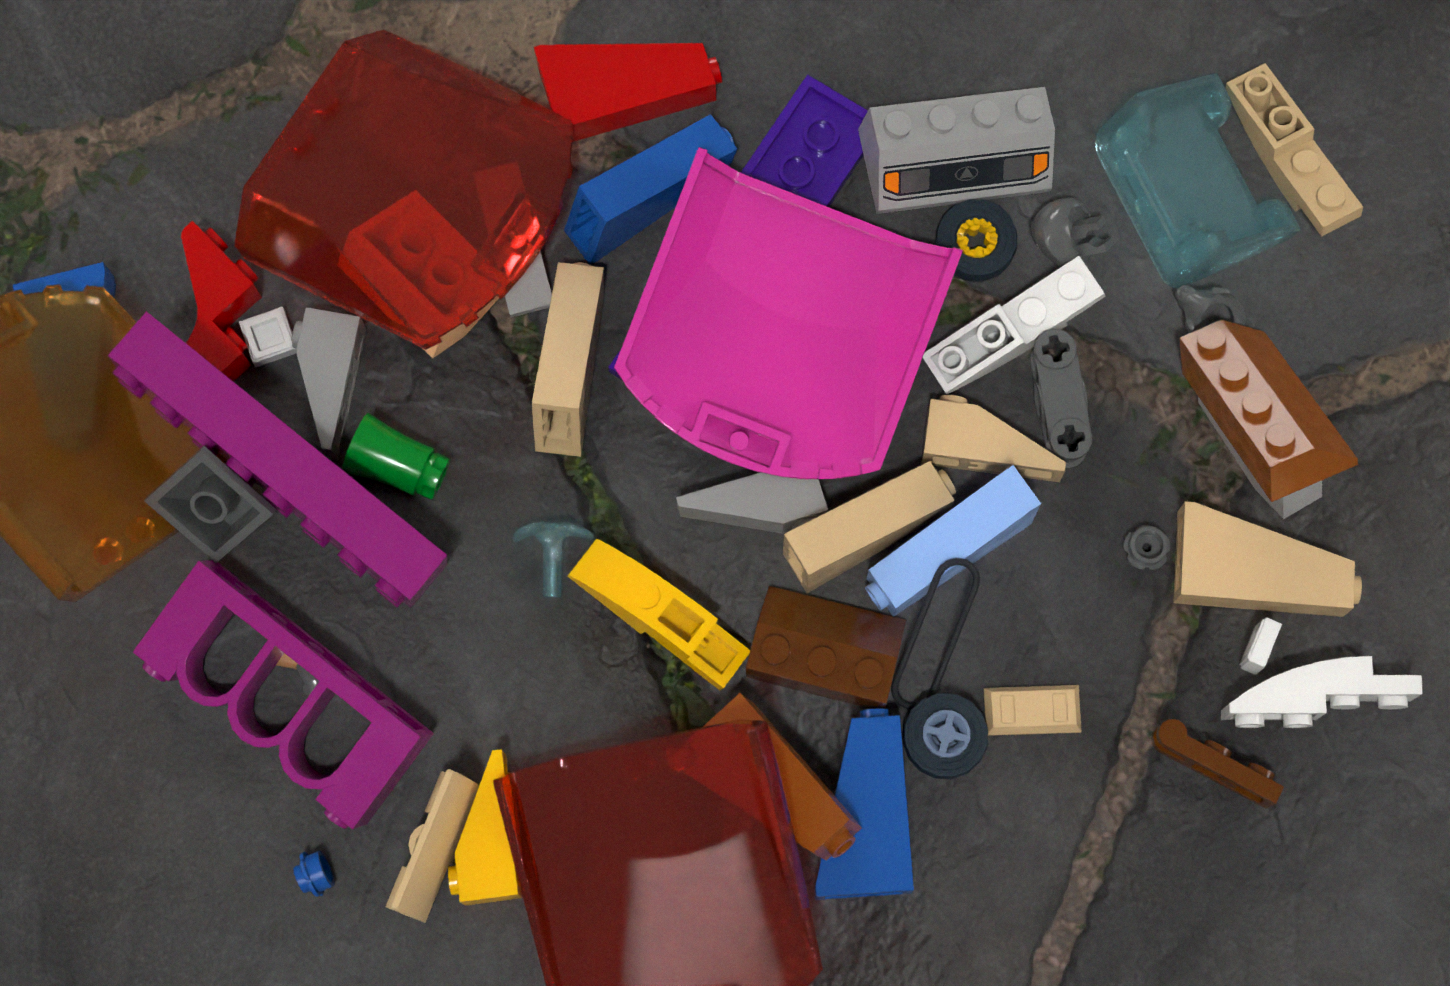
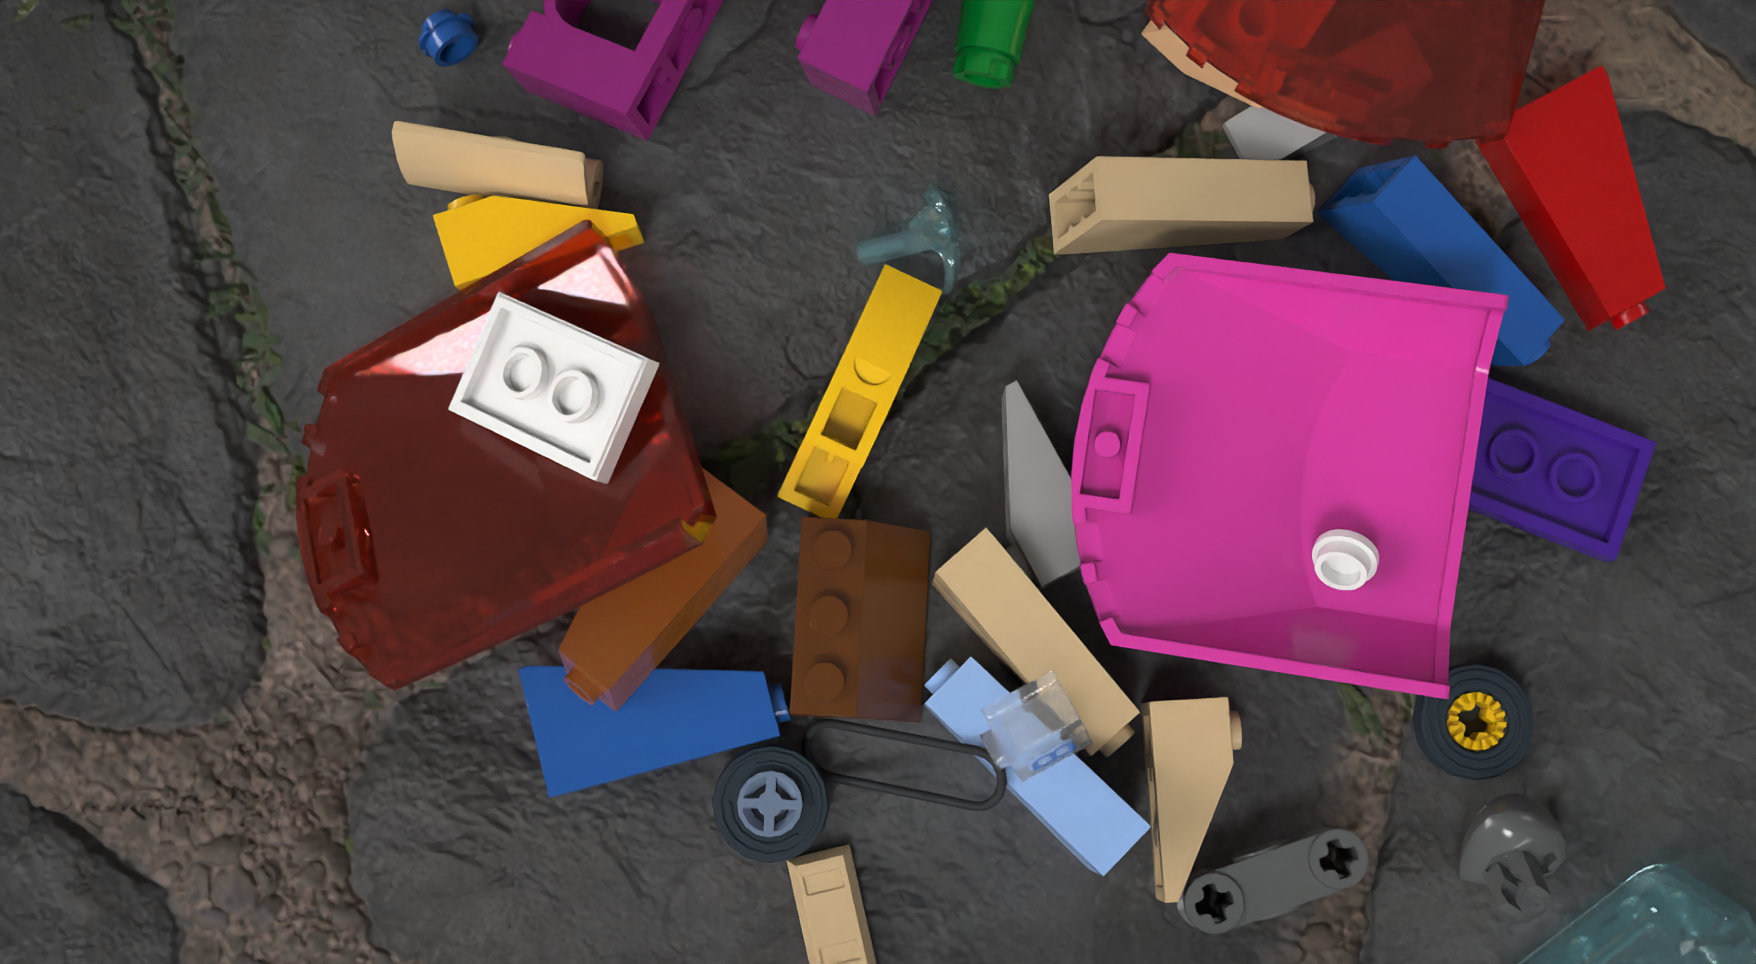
camera: 75 degrees right, 5 degrees up
(613, 831) = (553, 387): none -> white tile
(850, 298) = (1344, 559): none -> white plate
(930, 529) = (1033, 727): none -> clear brick
(958, 149) = (1599, 672): light grey slope -> none
(1014, 327) = (1359, 795): white slope -> none

